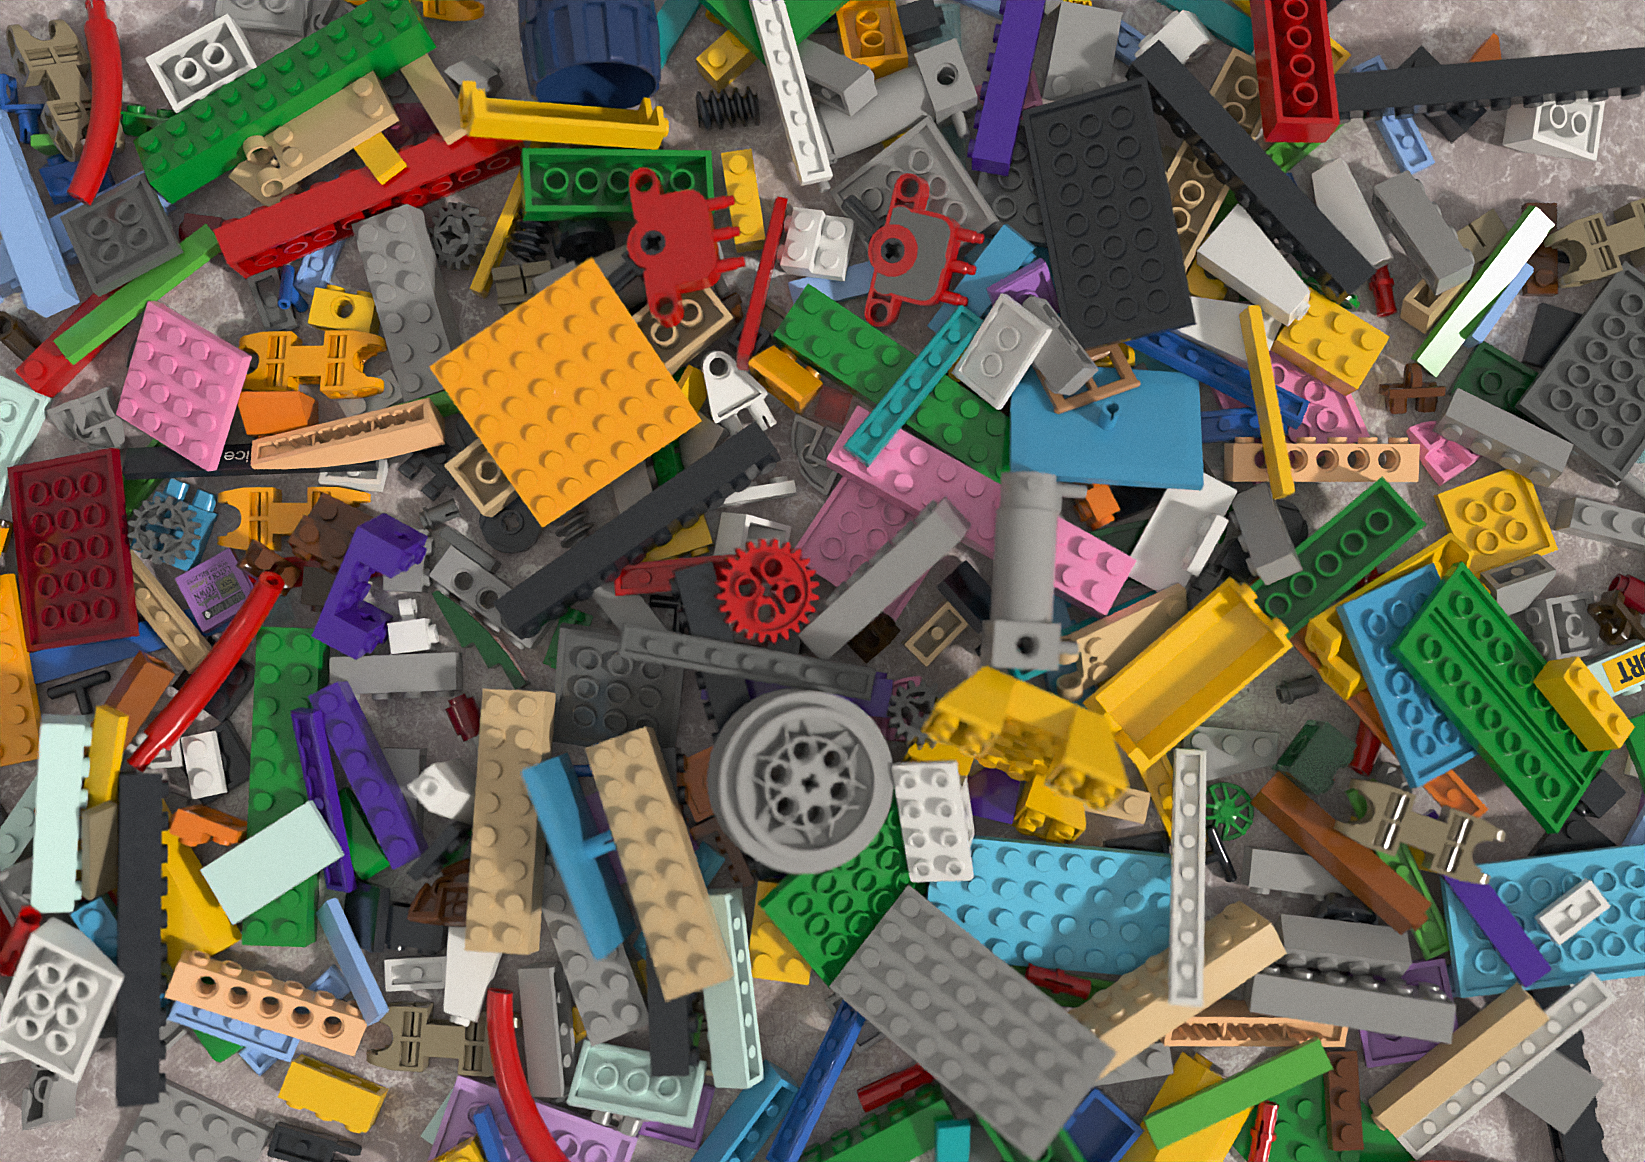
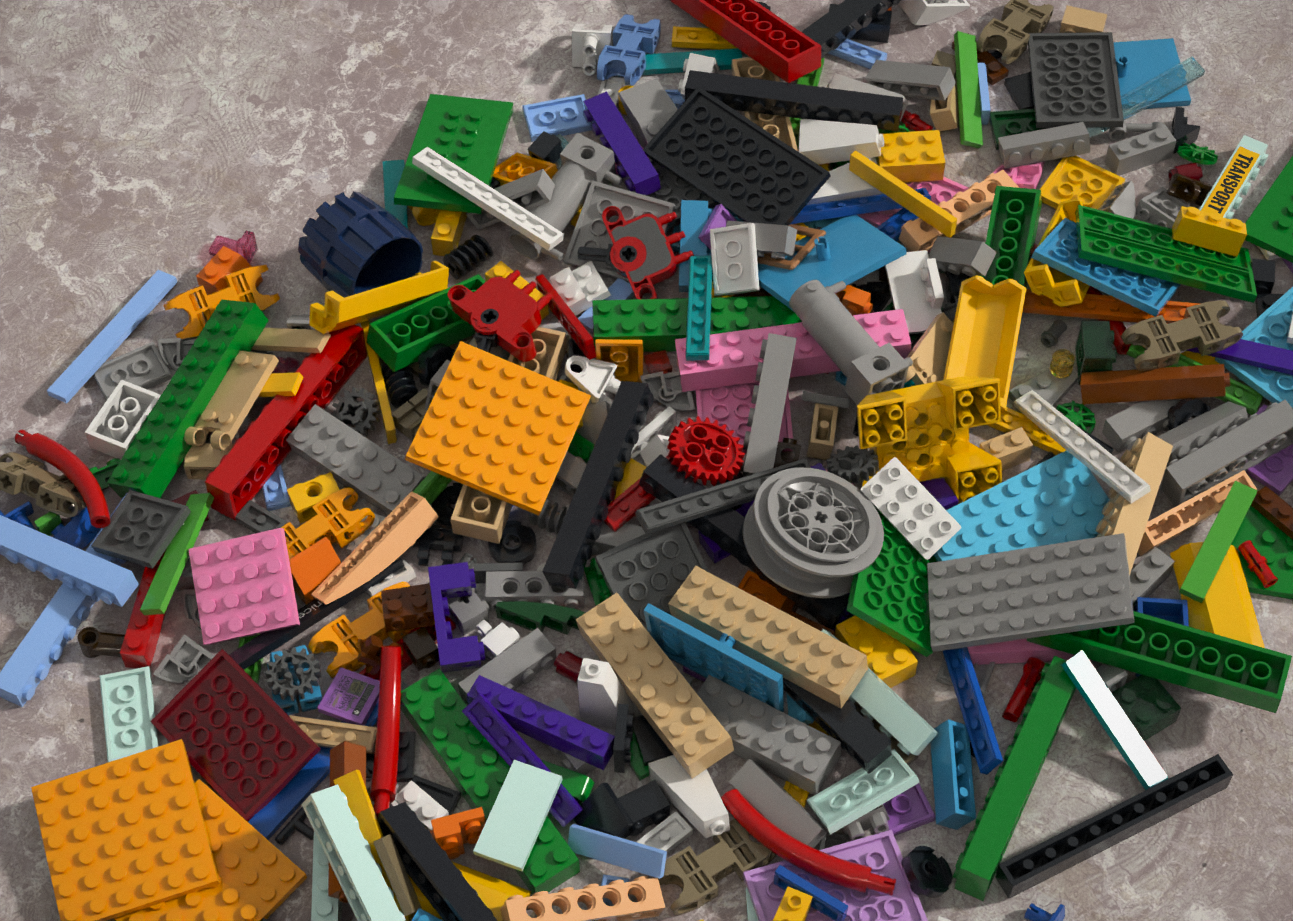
camera: 35 degrees left, 30 degrees down
(288, 293) = (271, 505): blue piece -> none
(446, 899) = (651, 762): reddish brown brick -> none
(1273, 742) = (1059, 358): none -> clear yellow wheel
(1412, 387) = (975, 154): reddish brown hips -> none

